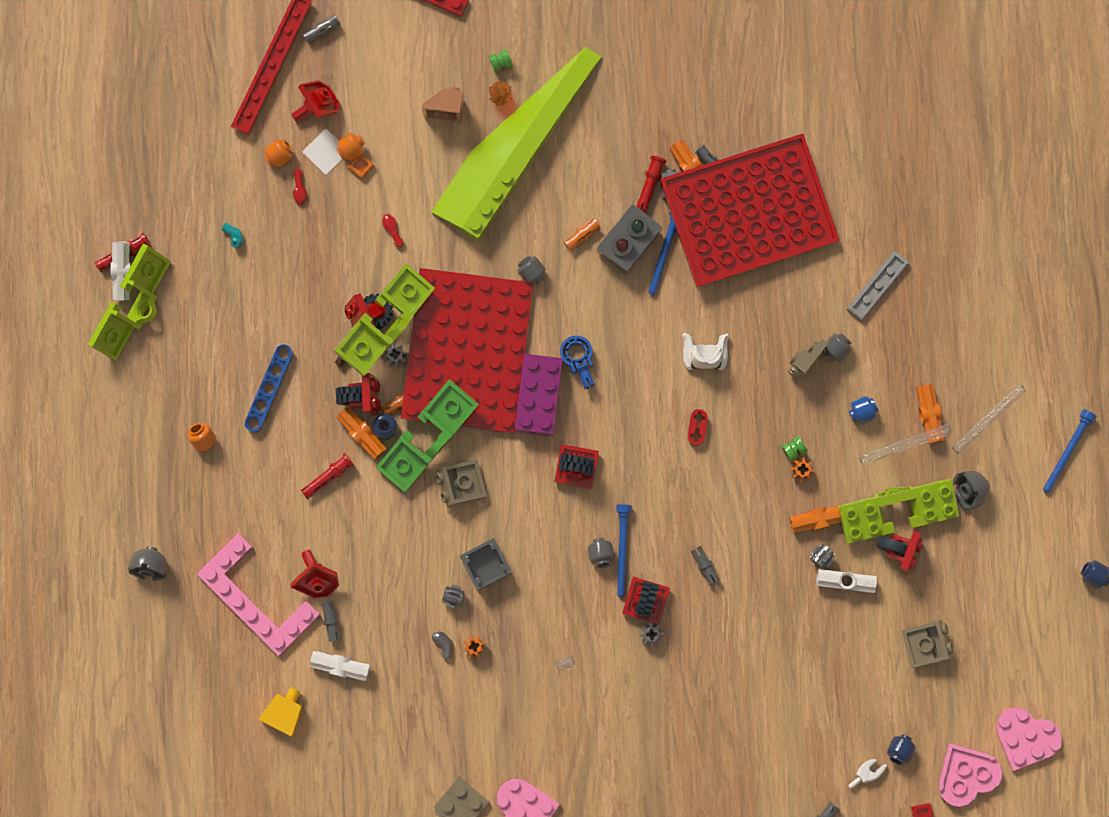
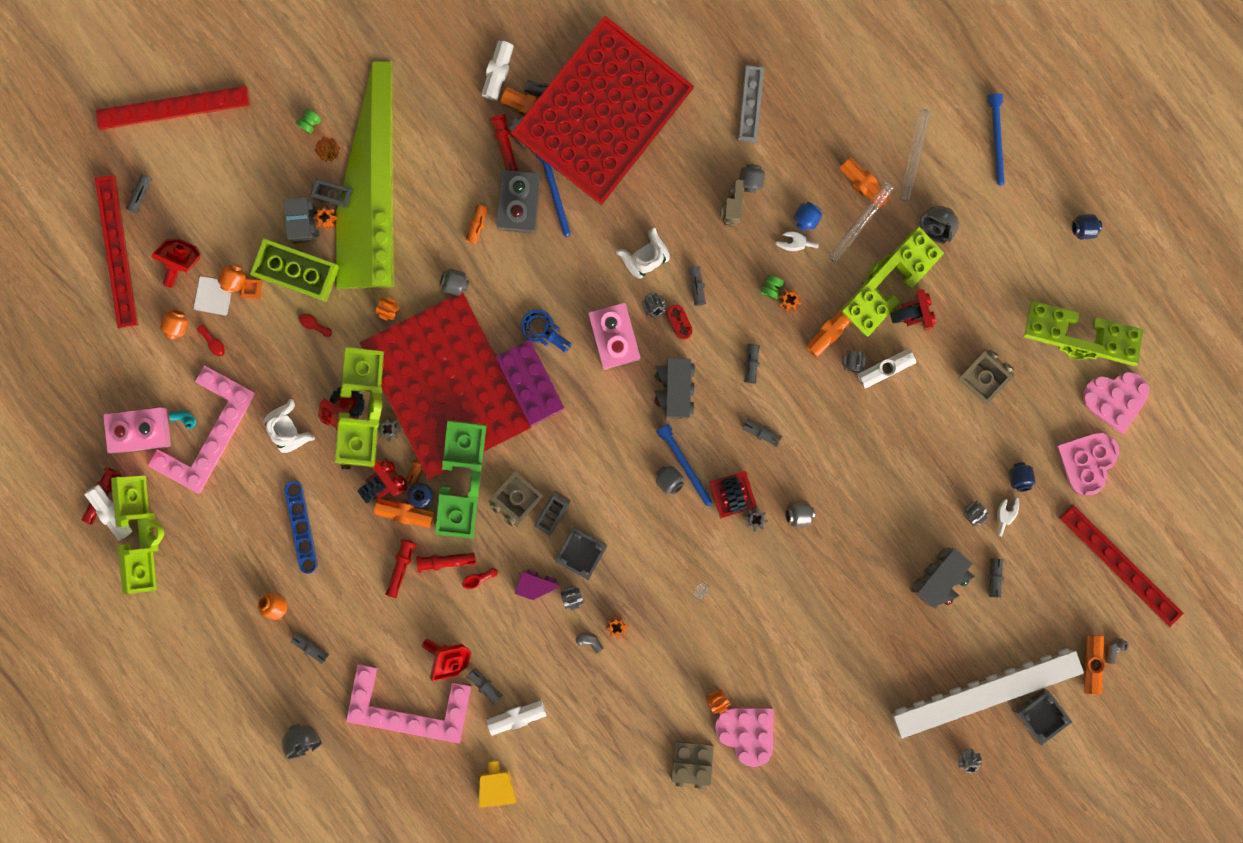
camera: 35 degrees left, 5 degrees up
(189, 219) = (137, 430): none -> bright pink piece
(208, 493) = (309, 648): none -> dark grey pin
(213, 289) = (198, 474): none -> bright pink plate
(307, 299) = (282, 429): none -> white hair
(360, 491) = (436, 562): none -> red pin
(382, 528) = (474, 580): none -> red piece
(407, 174) = (294, 270): none -> lime brick
(427, 566) = (533, 586): none -> magenta slope
(439, 136) = (300, 221): none -> dark grey container
(445, 105) = (287, 186): nougat slope -> none
(459, 143) = (321, 214): none -> orange gear
(461, 255) = (387, 308): none -> orange gear
(470, 120) = (315, 194): none -> dark grey slope
(501, 513) = (559, 498): none -> dark grey slope
(517, 766) = (717, 701): none -> orange gear
(576, 466) = (601, 421): plate -> none
(634, 402) = (614, 336): none -> bright pink piece
(660, 480) = (678, 385): none -> dark grey piece
(684, 120) = (497, 70): none -> white piece
(685, 398) = (653, 305): none -> flat silver gear
(691, 654) = (799, 514): none -> flat silver head
(732, 406) = (697, 287): none -> dark grey pin
(735, 502) = (751, 363): none -> dark grey pin
(775, 787) = (941, 577): none -> dark grey piece
(841, 426) = (799, 242): none -> white hand
(841, 754) = (975, 513): none -> flat silver gear
(1054, 685) = (1111, 342): none -> lime plate

